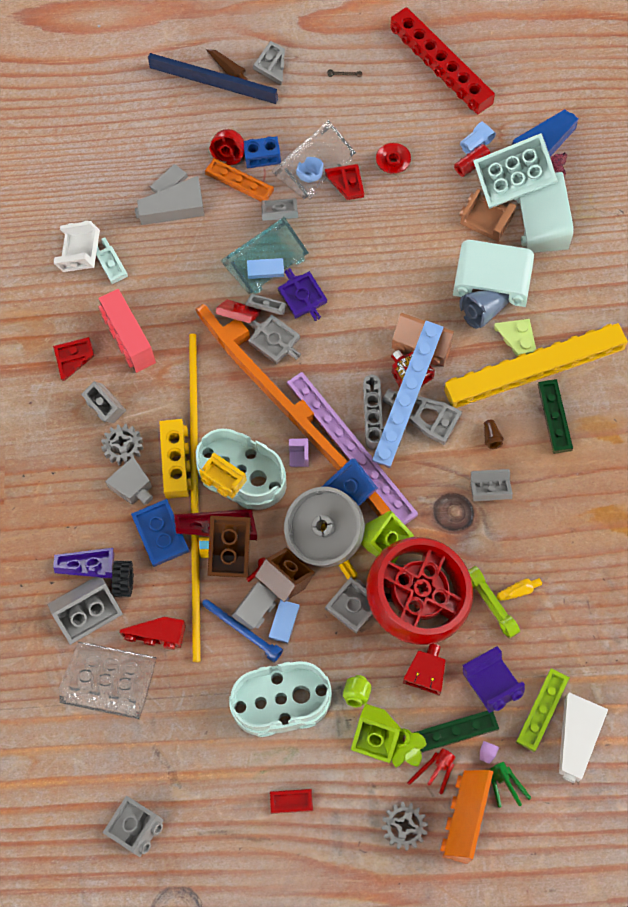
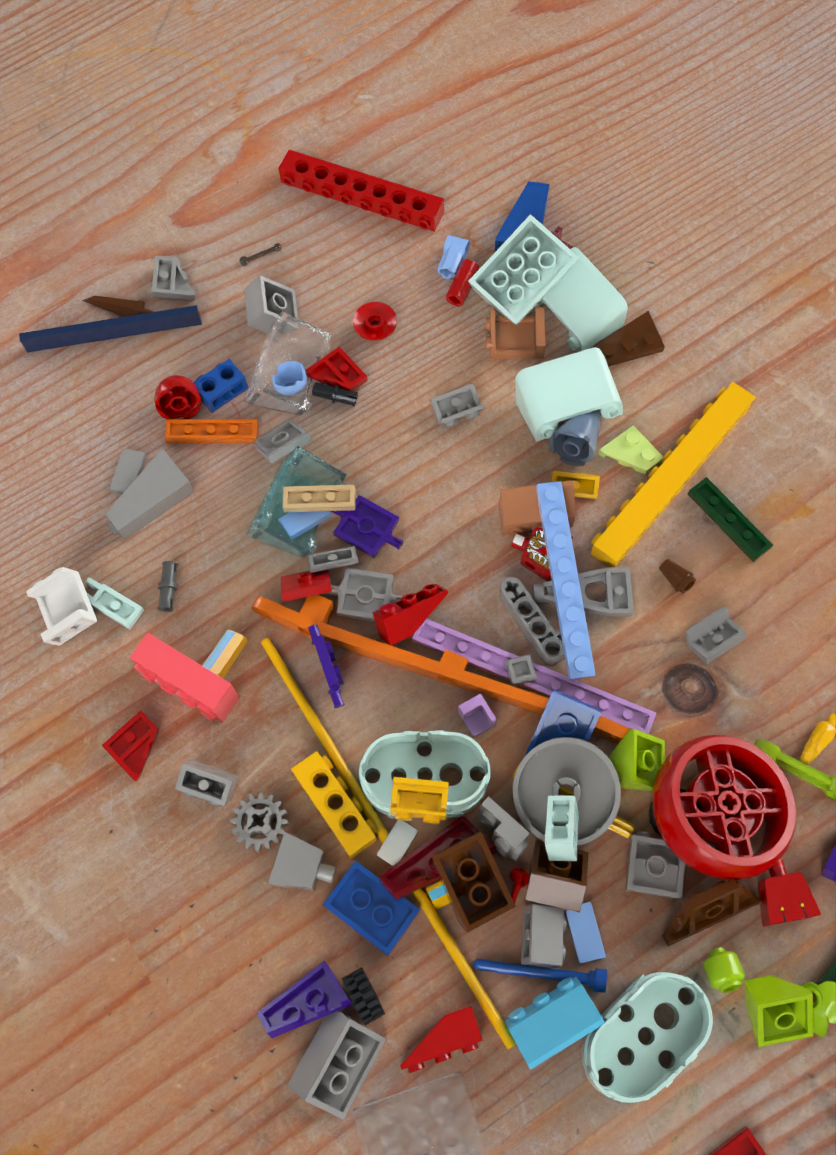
camera: 30 degrees left, 0 degrees up
(151, 268) = (167, 586): none -> dark grey pin
(162, 330) = (225, 653): none -> yellow slope
(200, 502) = (397, 842): none -> white sticker
(221, 365) = (326, 658): none -> dark purple plate
(228, 655) = (553, 1021): none -> medium azure slope
(268, 534) = (508, 834): none -> light grey plate
(280, 259) = (319, 498): none -> tan plate
(288, 365) = (404, 617): none -> red slope
(303, 544) = (562, 828): none -> light aqua brick
(330, 107) = (265, 302): none -> light grey slope
(335, 195) = (335, 394): none -> black axle
(344, 438) = (520, 670): none -> light grey tile
(372, 648) = (709, 908): none -> reddish brown wing
(413, 243) = (456, 404): none -> light grey bracket
(465, 339) = (585, 484): none -> yellow slope
(566, 260) = (632, 341): none -> reddish brown wing

